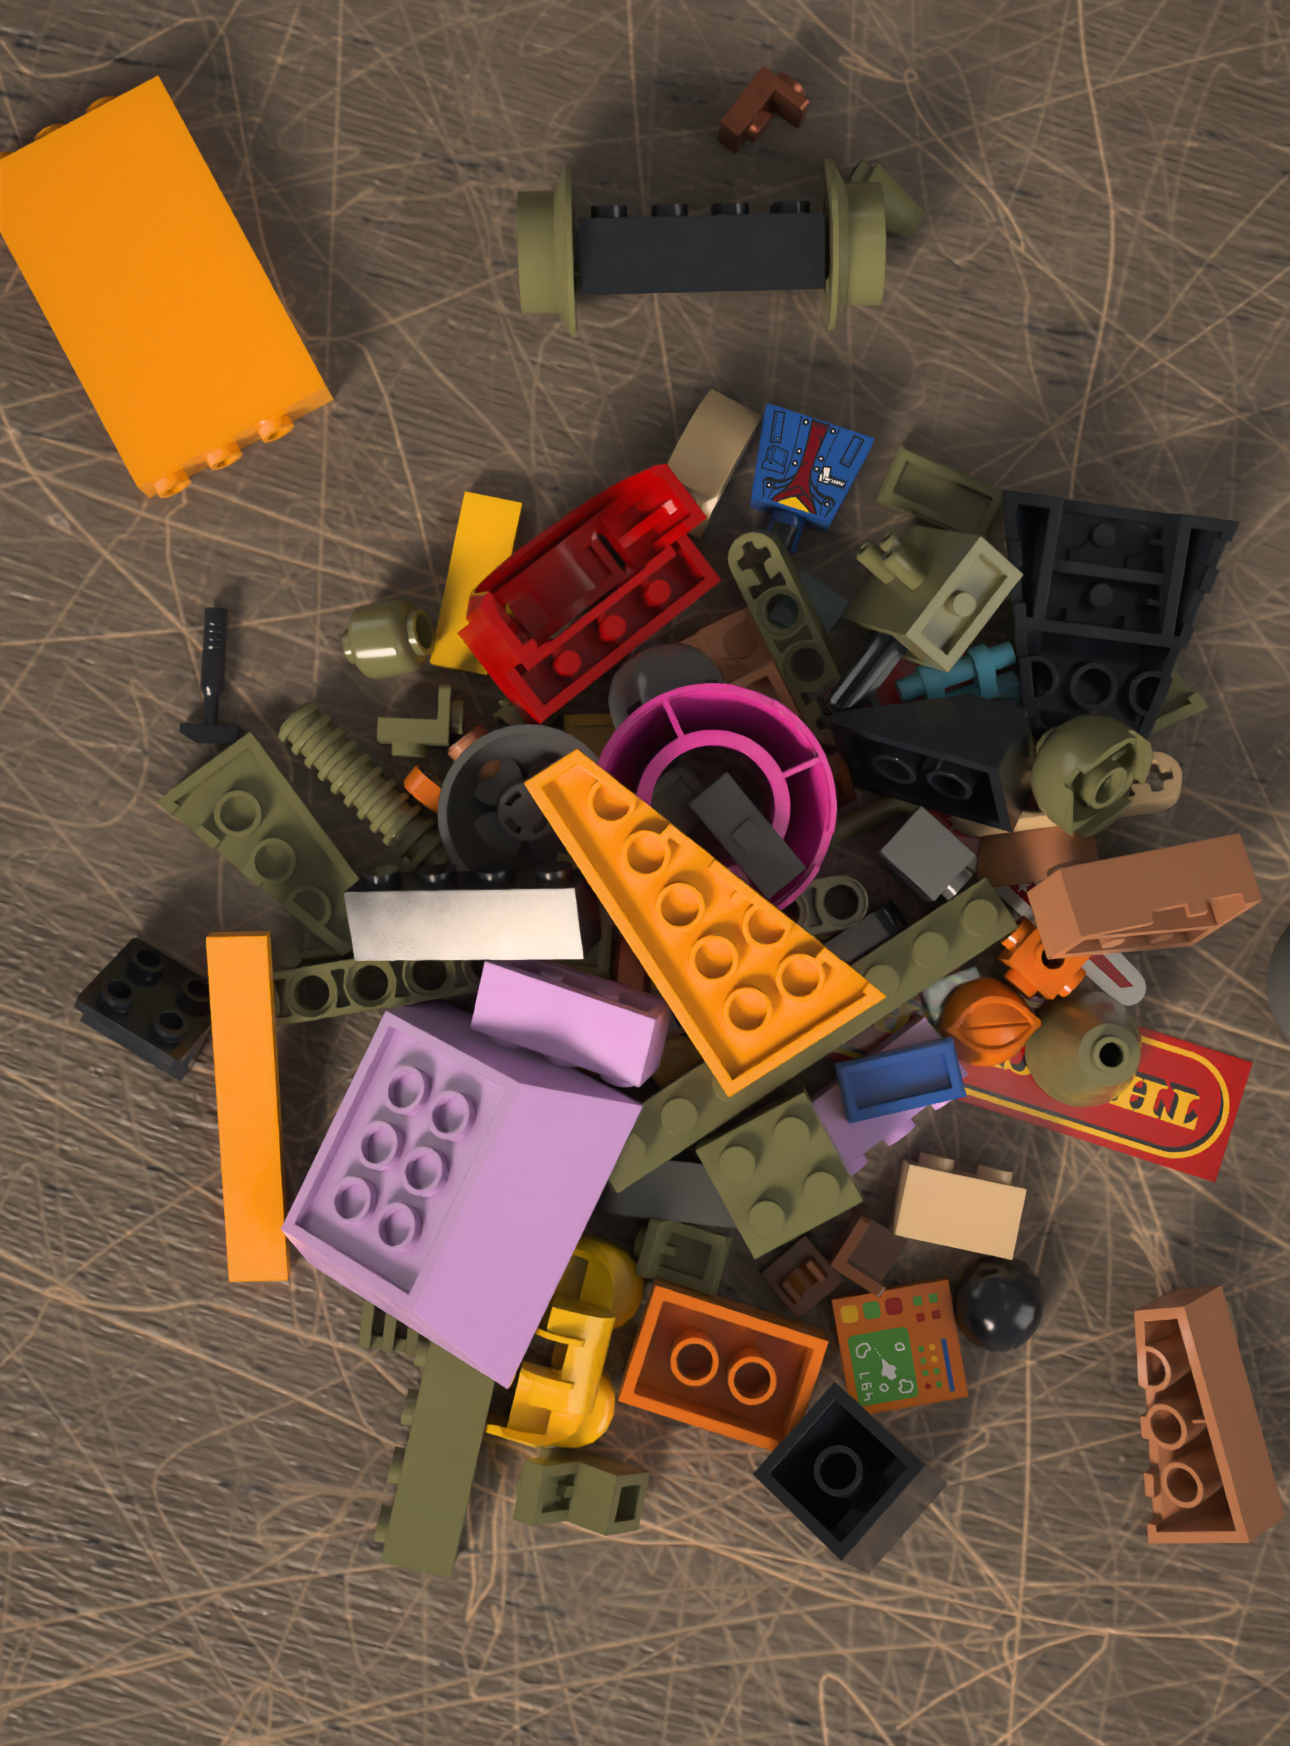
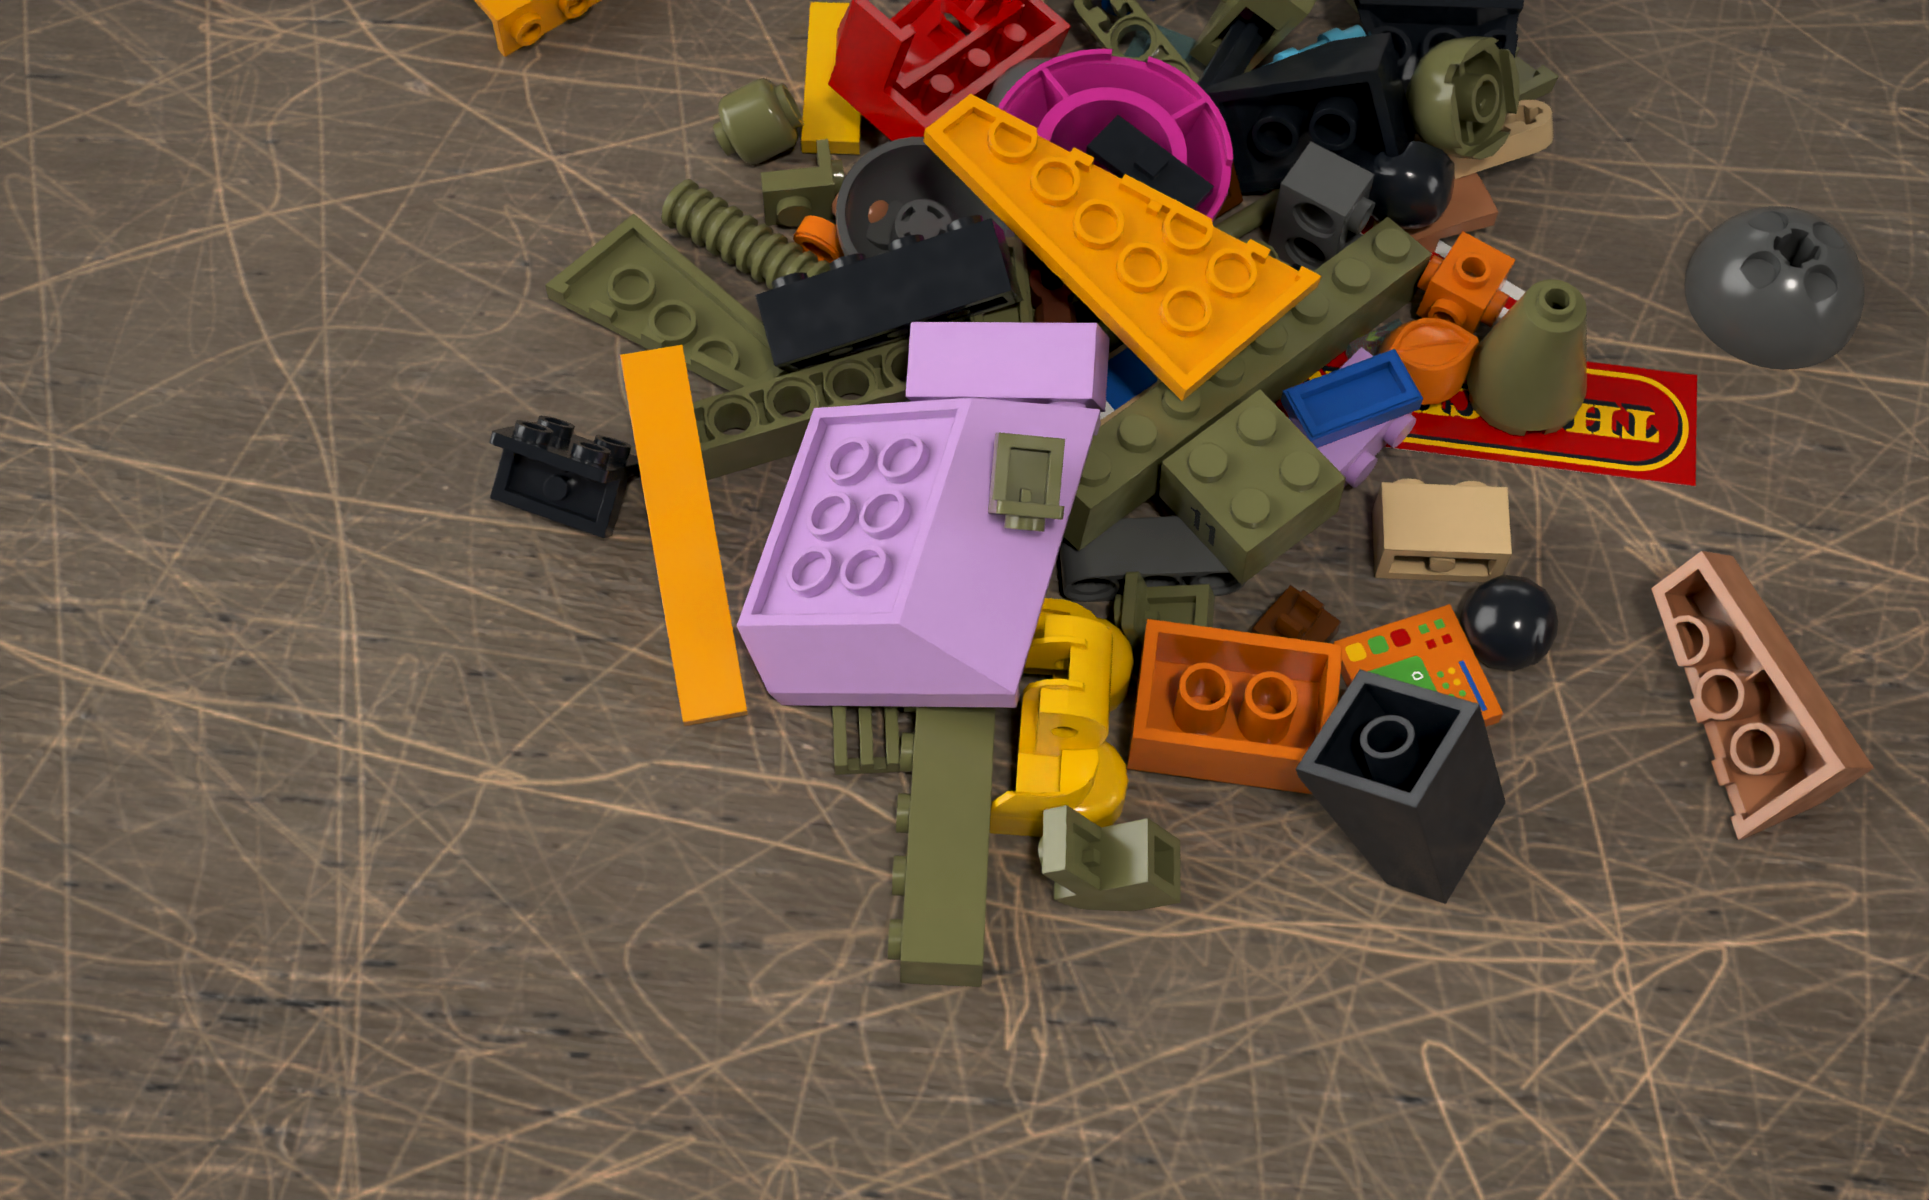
camera: 10 degrees left, 25 degrees down
(212, 683) = (589, 230): black piece -> none
(551, 1200) = (1026, 480): none -> olive bracket
(865, 1251) = (1355, 589): reddish brown panel -> none
(1016, 857) = (1412, 186): none -> black hair
(1143, 898) = (1549, 204): nougat wedge -> none

